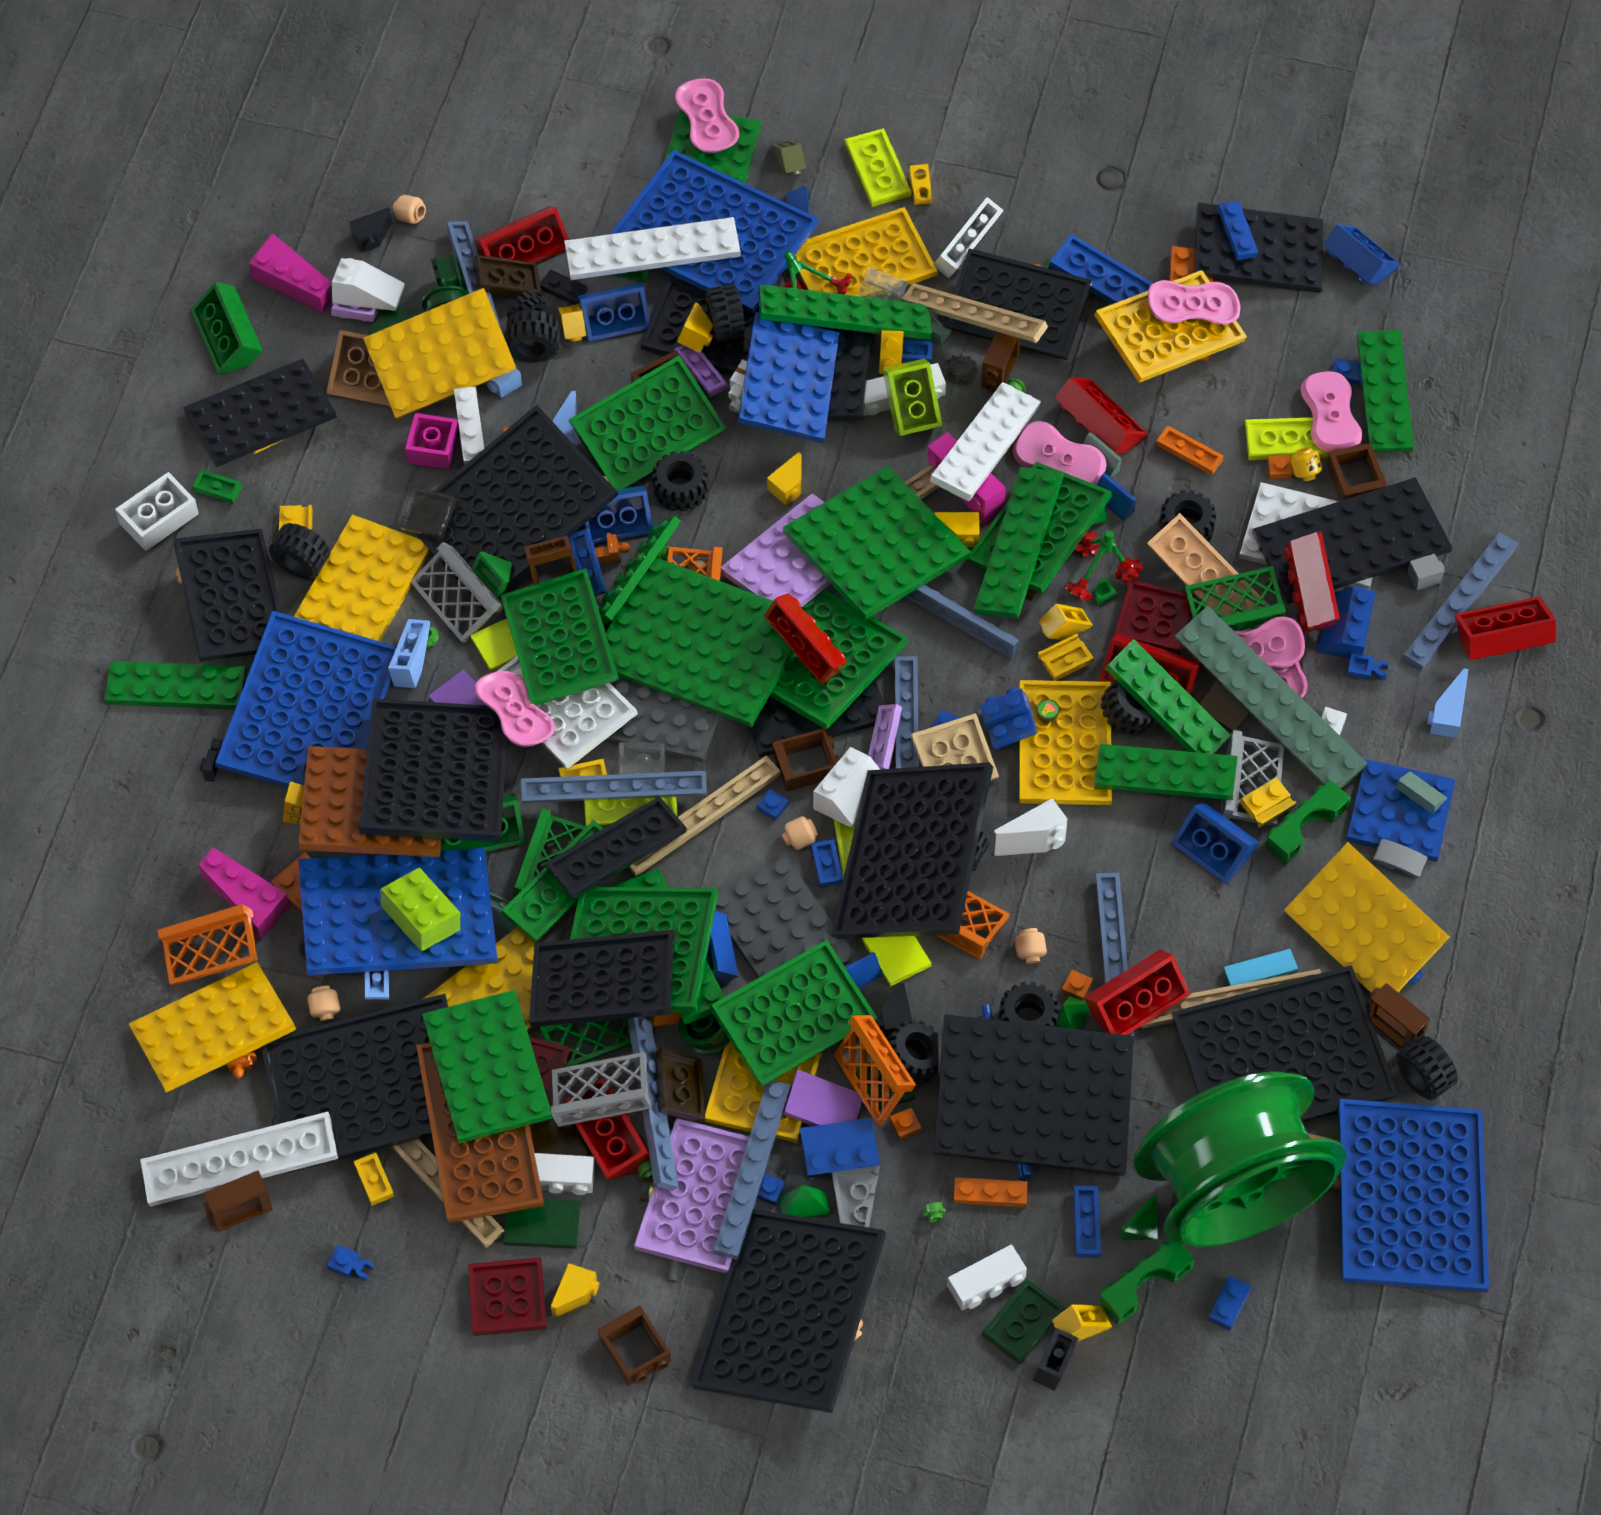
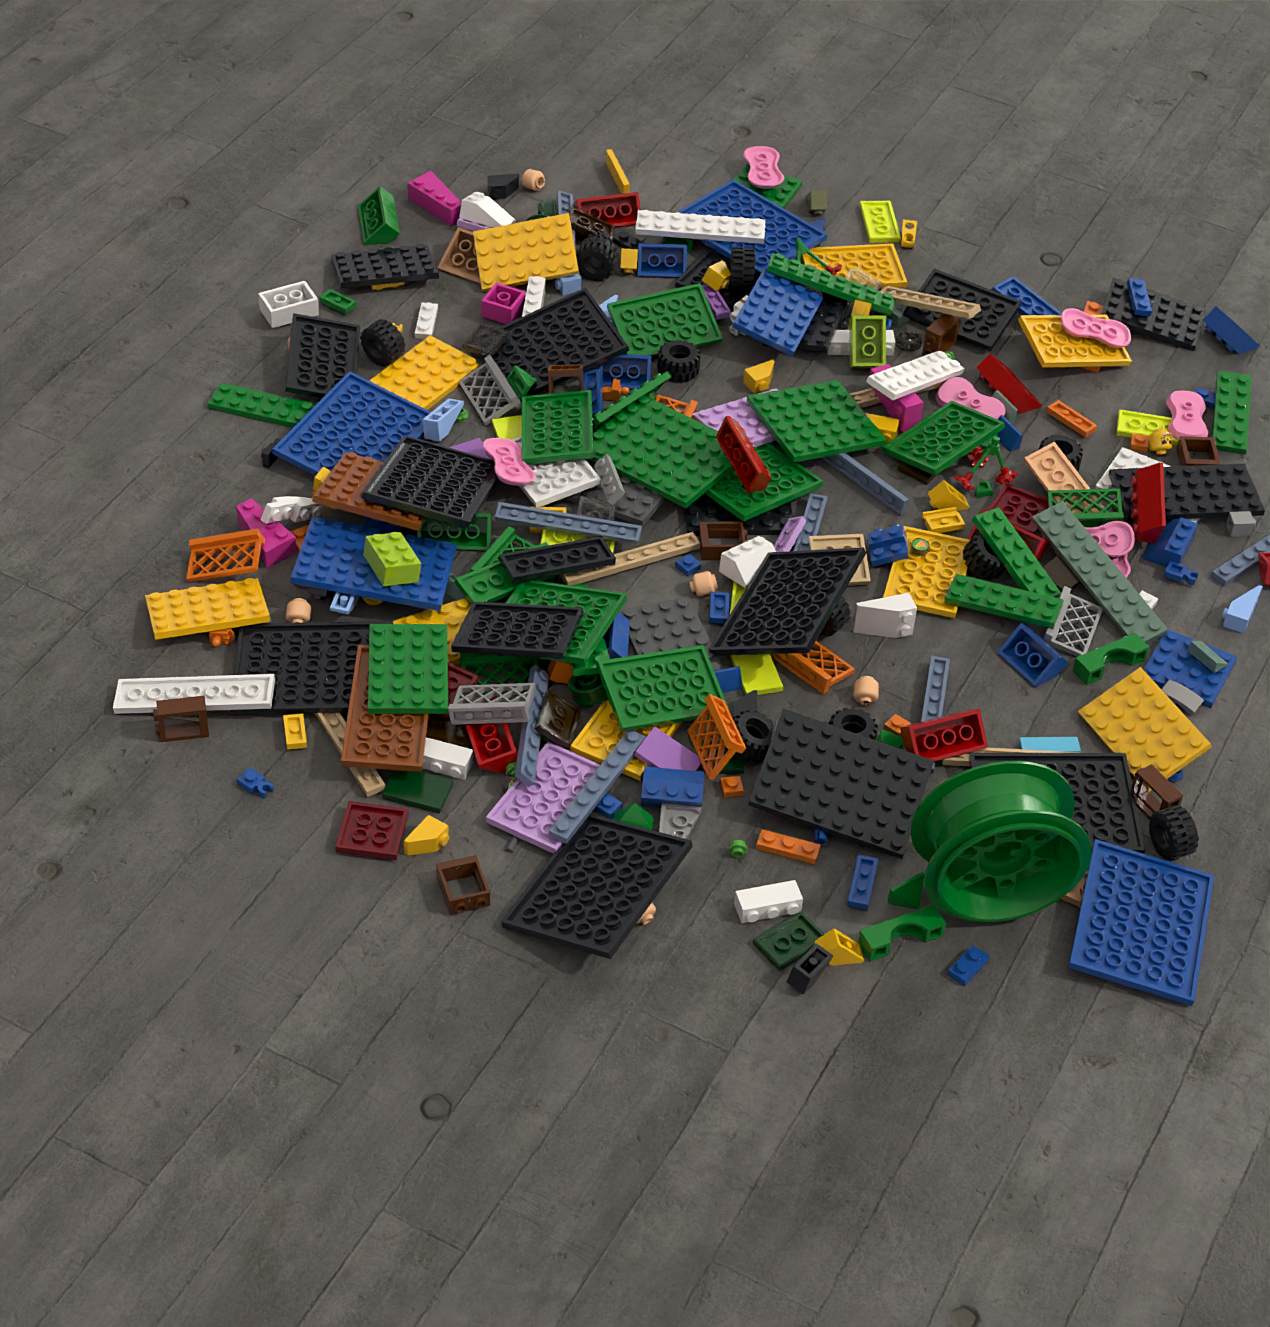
camera: 10 degrees right, 15 degrees down
(268, 852) = (291, 508): none -> white slope
(339, 489) = (426, 320): none -> white plate
(516, 169) = (617, 172): none -> yellow tile
(647, 709) = (609, 479): none -> light grey plate
(968, 237) = (943, 261): white brick -> none
(1019, 542) = (925, 441): green plate -> none
(1267, 802) = (1081, 639): yellow plate -> none

